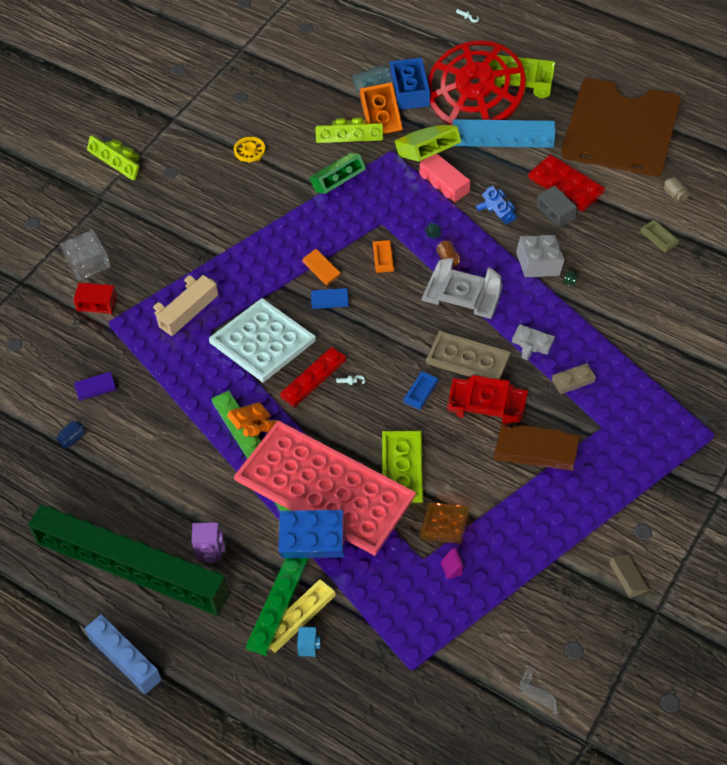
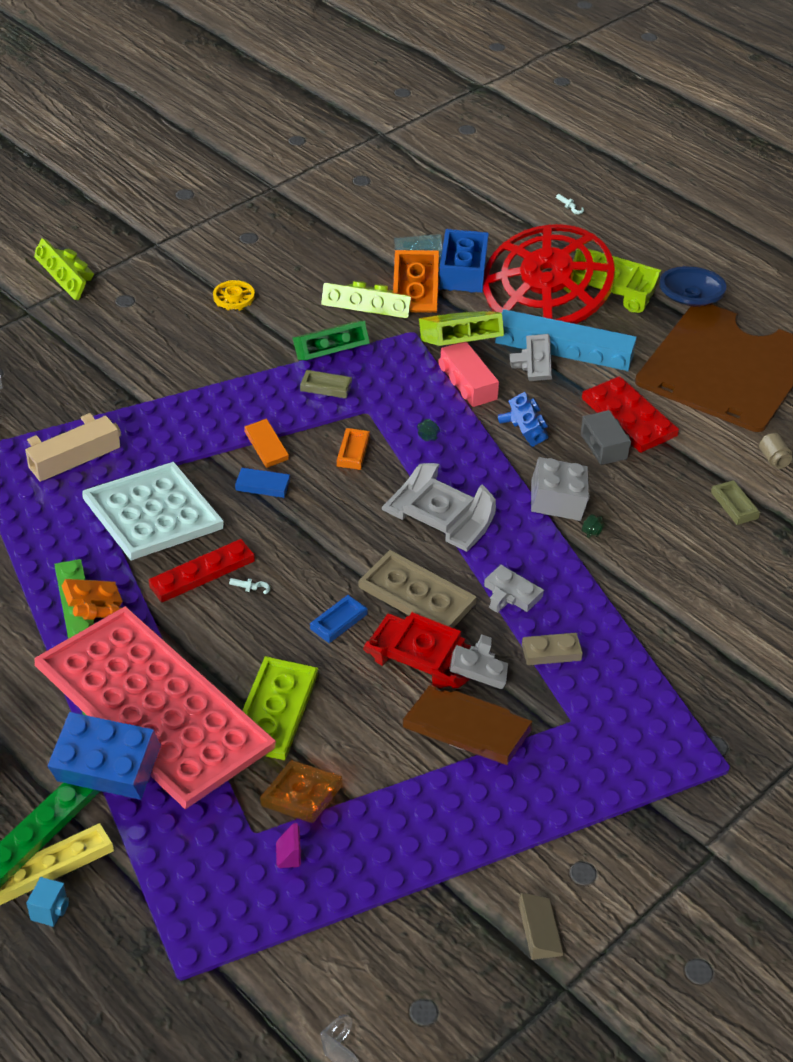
camera: 10 degrees right, 10 degrees down
(346, 209) = (326, 384): none -> olive tile
(447, 250) = (437, 454): clear orange brick -> none
(487, 153) = (535, 358): none -> light grey hinge
(529, 401) = (479, 663): none -> light grey hinge
(580, 68) = (692, 286): none -> dark blue dish

